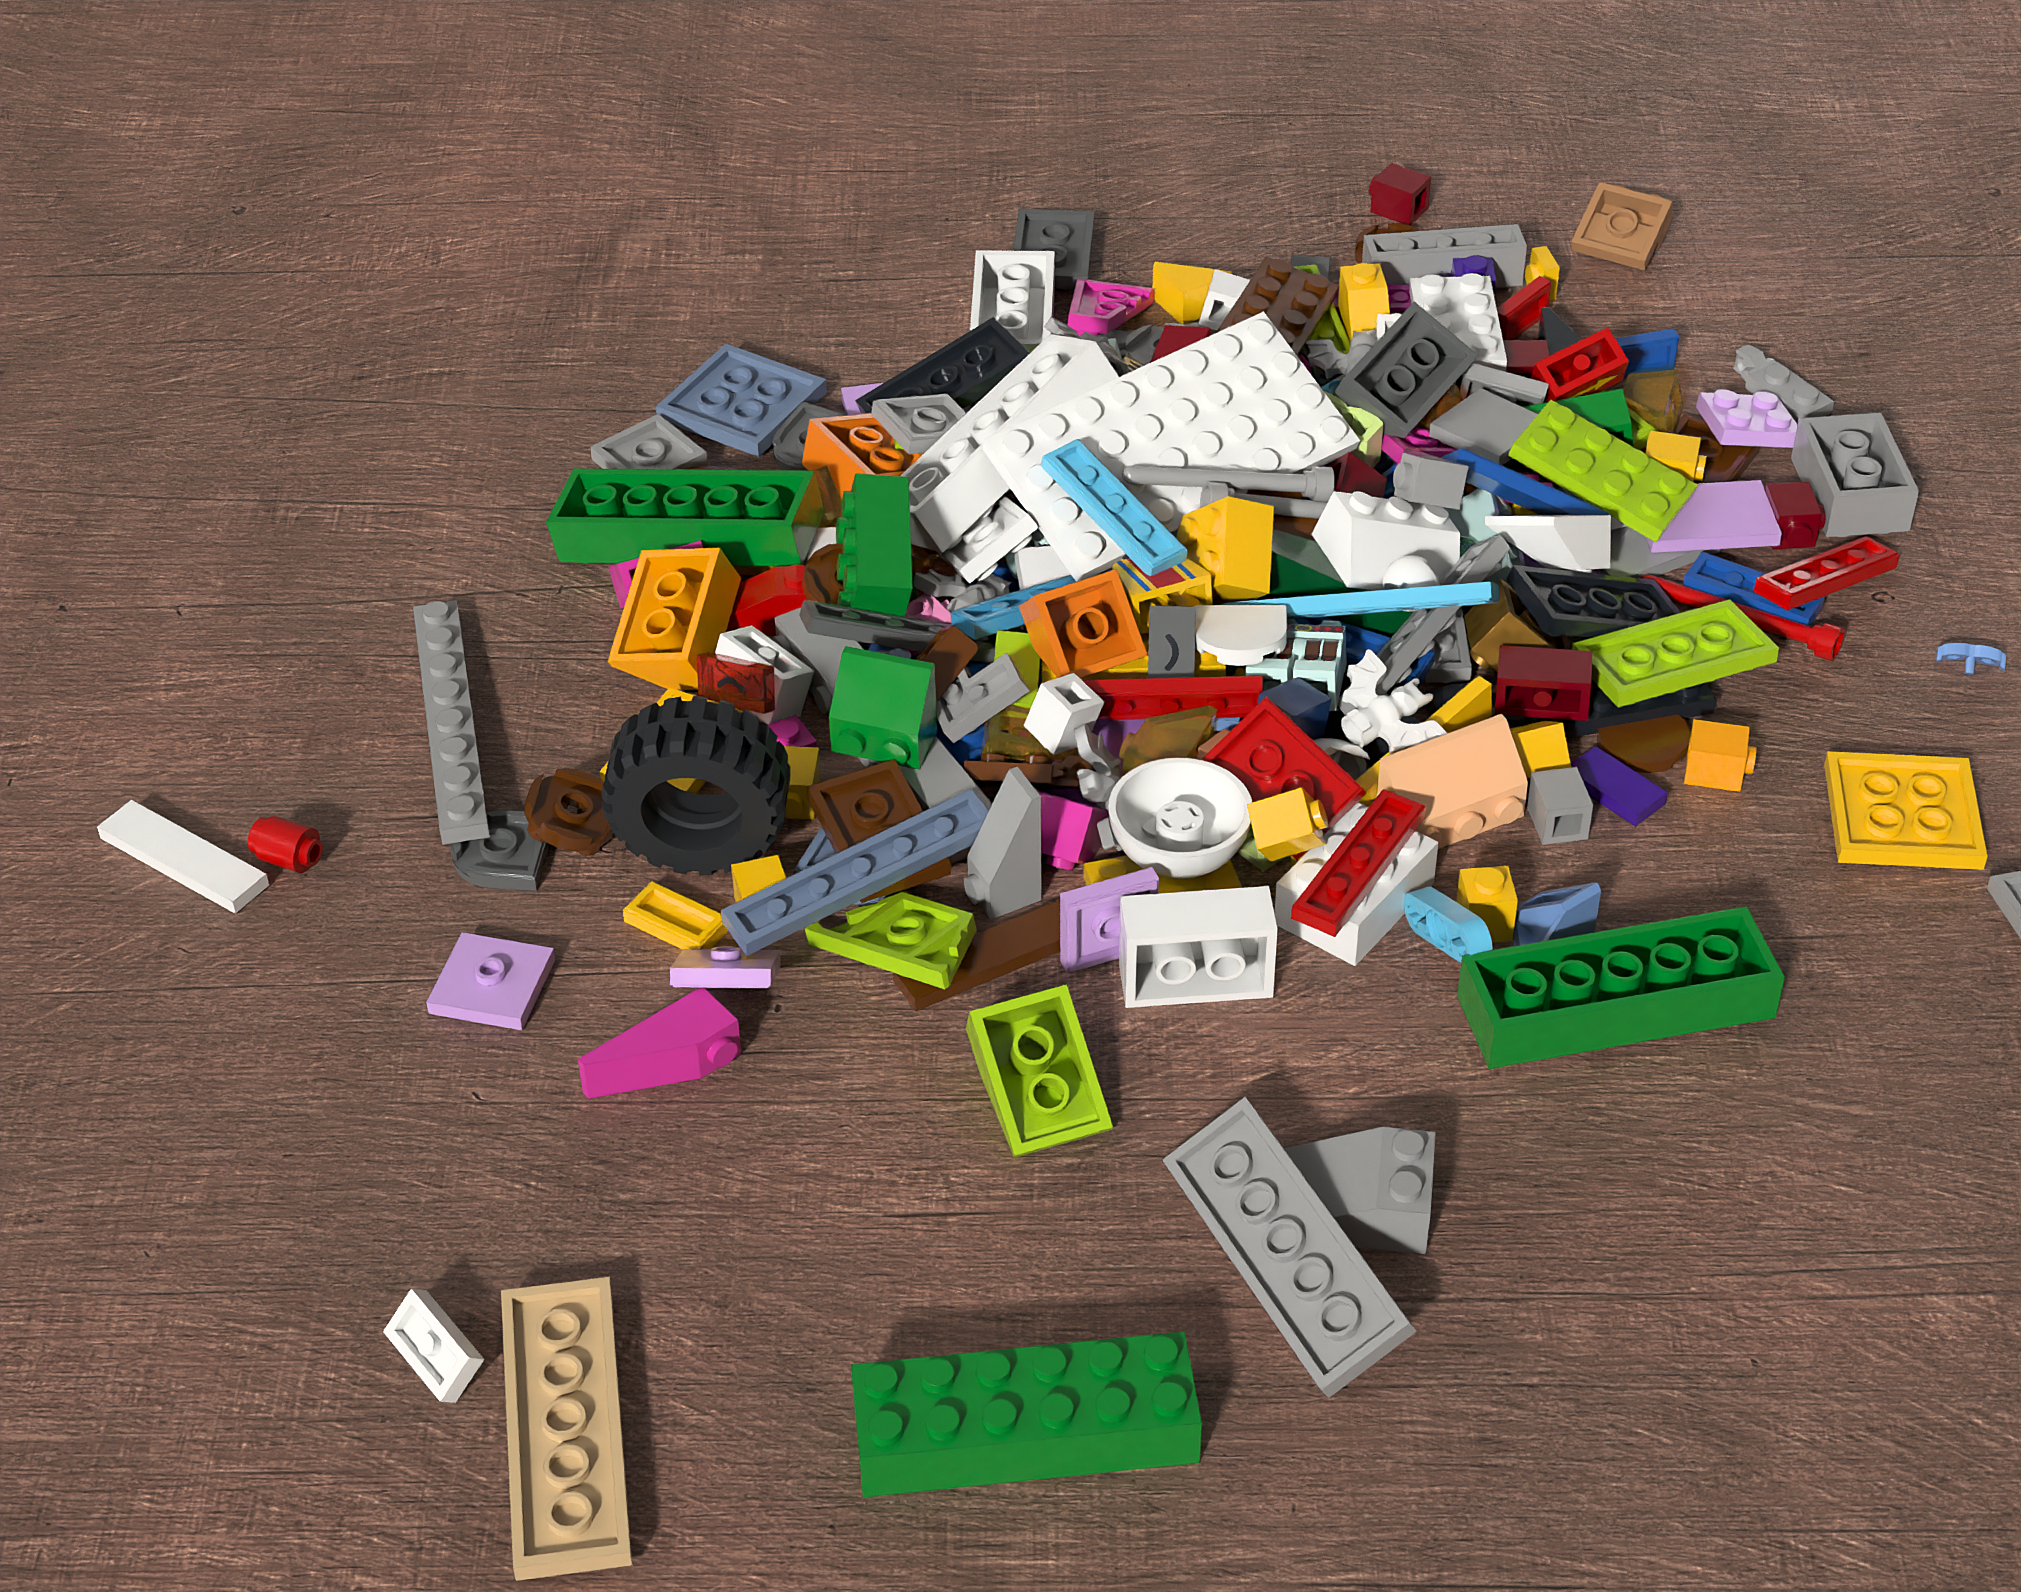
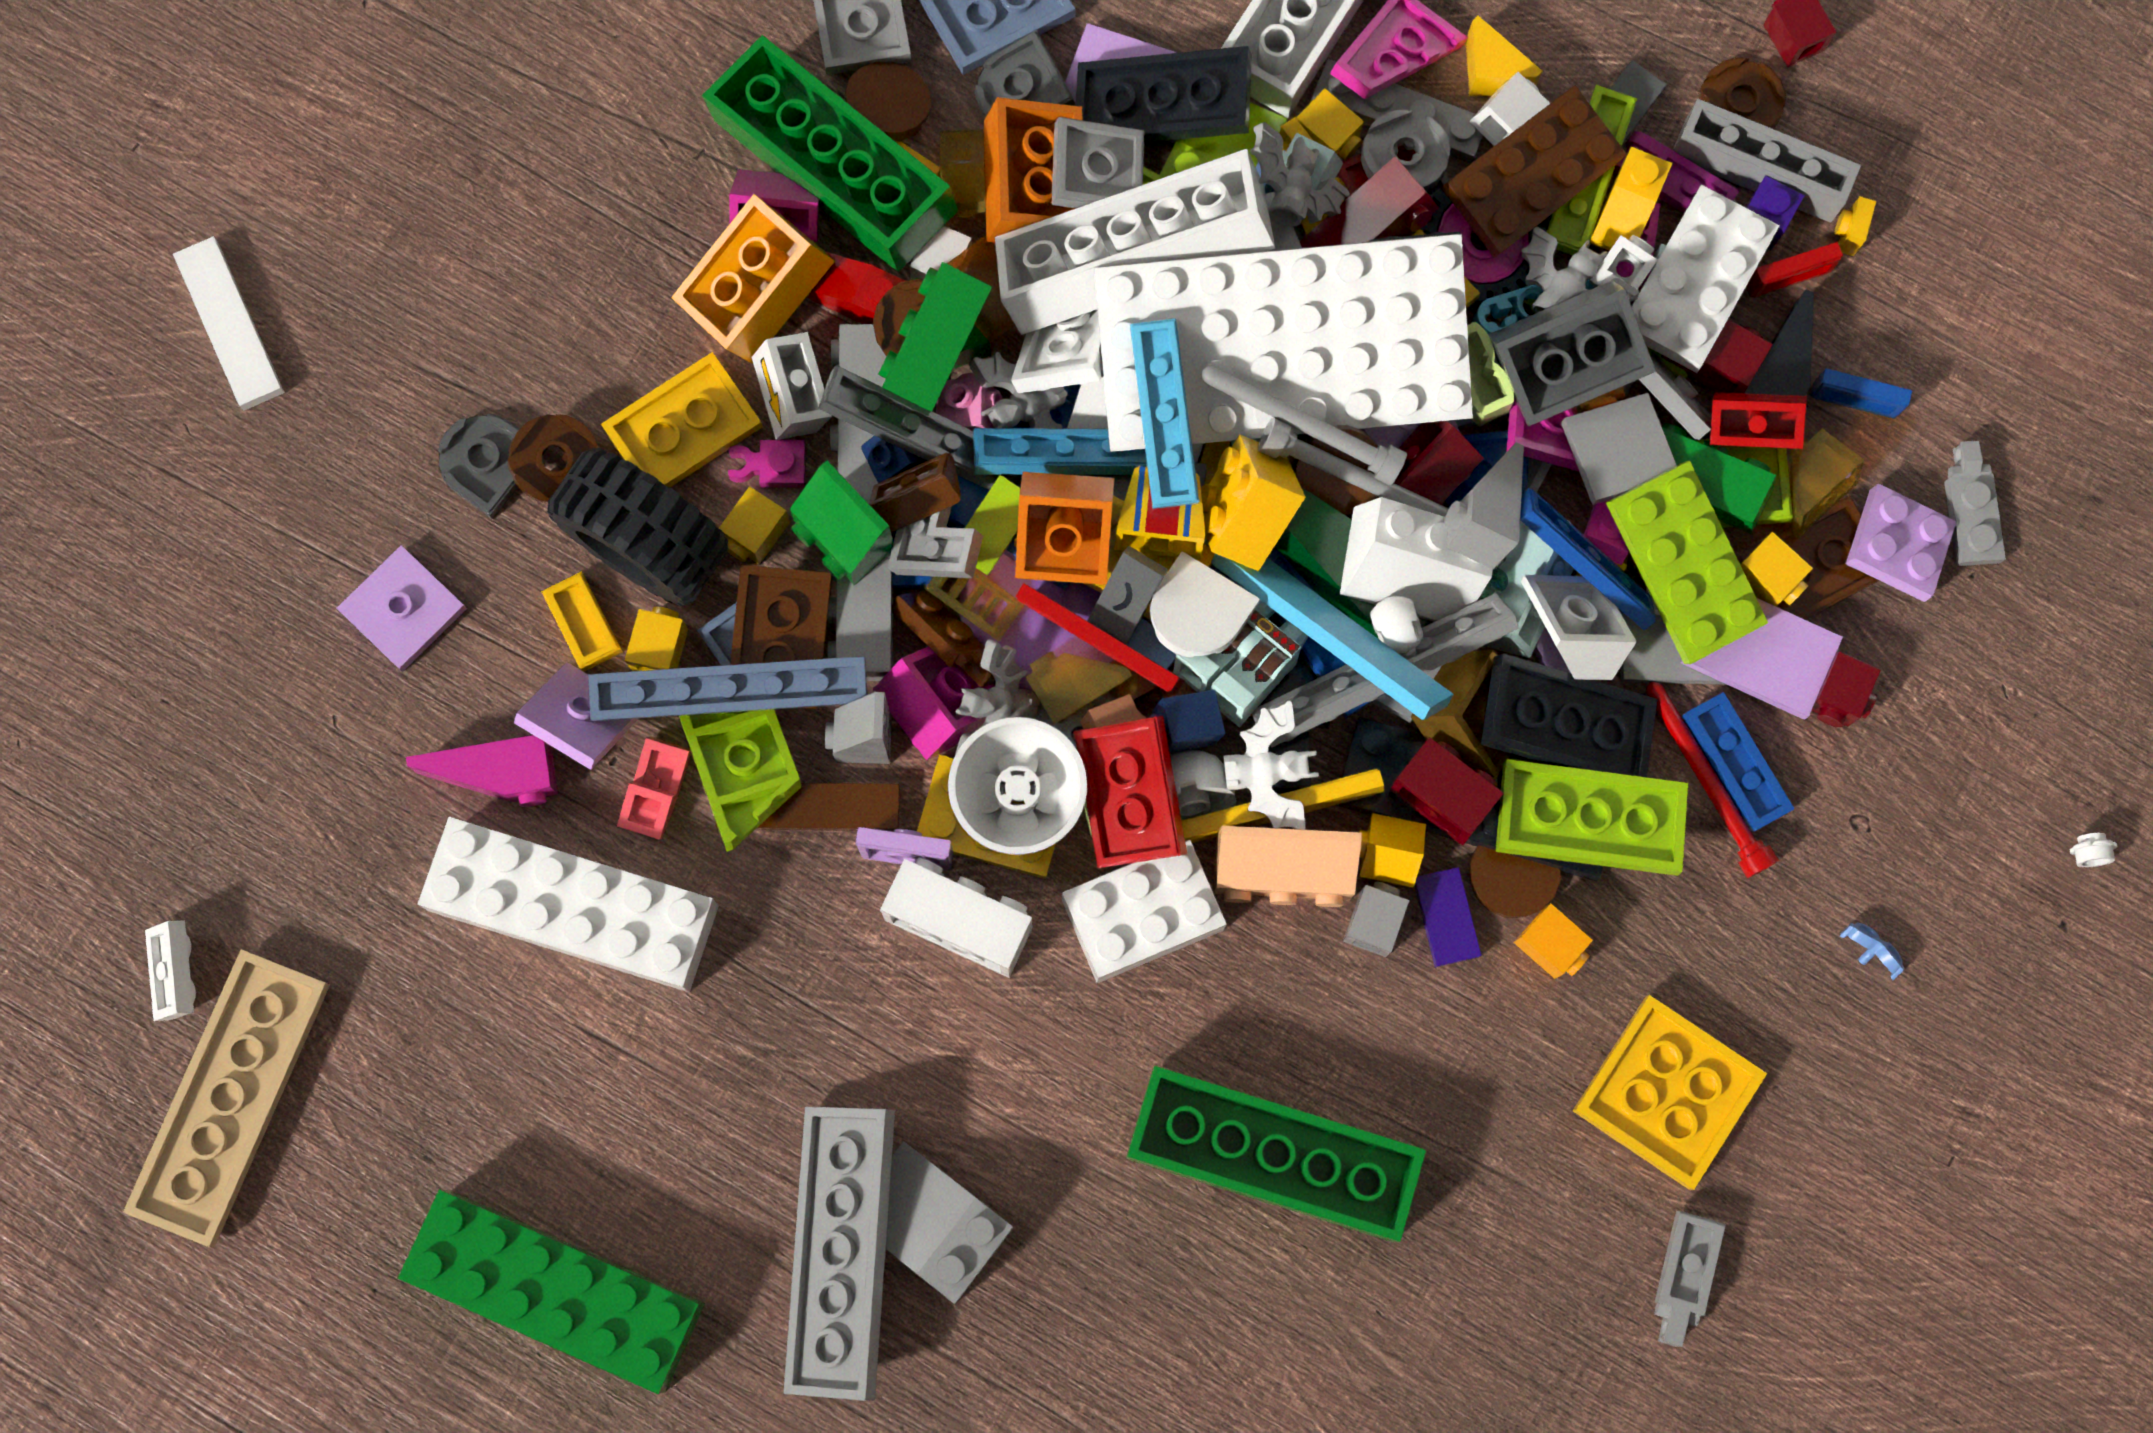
camera: 25 degrees right, 35 degrees up
(285, 843) = (309, 363): red brick -> none
(450, 723) = (514, 283): light grey plate -> none
(737, 681) = (760, 390): clear red tile -> none
(817, 1109) = (568, 904): none -> white brick
(834, 1000) = (654, 788): none -> coral slope
(1038, 1071) = (762, 963): lime slope -> none
(1060, 709) = (991, 614): white brick -> none
(1287, 824) = (1096, 852): yellow brick -> none
(1358, 863) = (1135, 920): red tile -> none
(1446, 923) = (1179, 1010): medium azure beam -> none
(1490, 896) = (1233, 998): yellow brick -> none
(1557, 914) = (1274, 1040): medium blue slope -> none
(1623, 225) = (1984, 200): medium nougat plate -> none
(1826, 573) = (1816, 784): red tile -> none
(1855, 474) = (1937, 678): light grey brick -> none

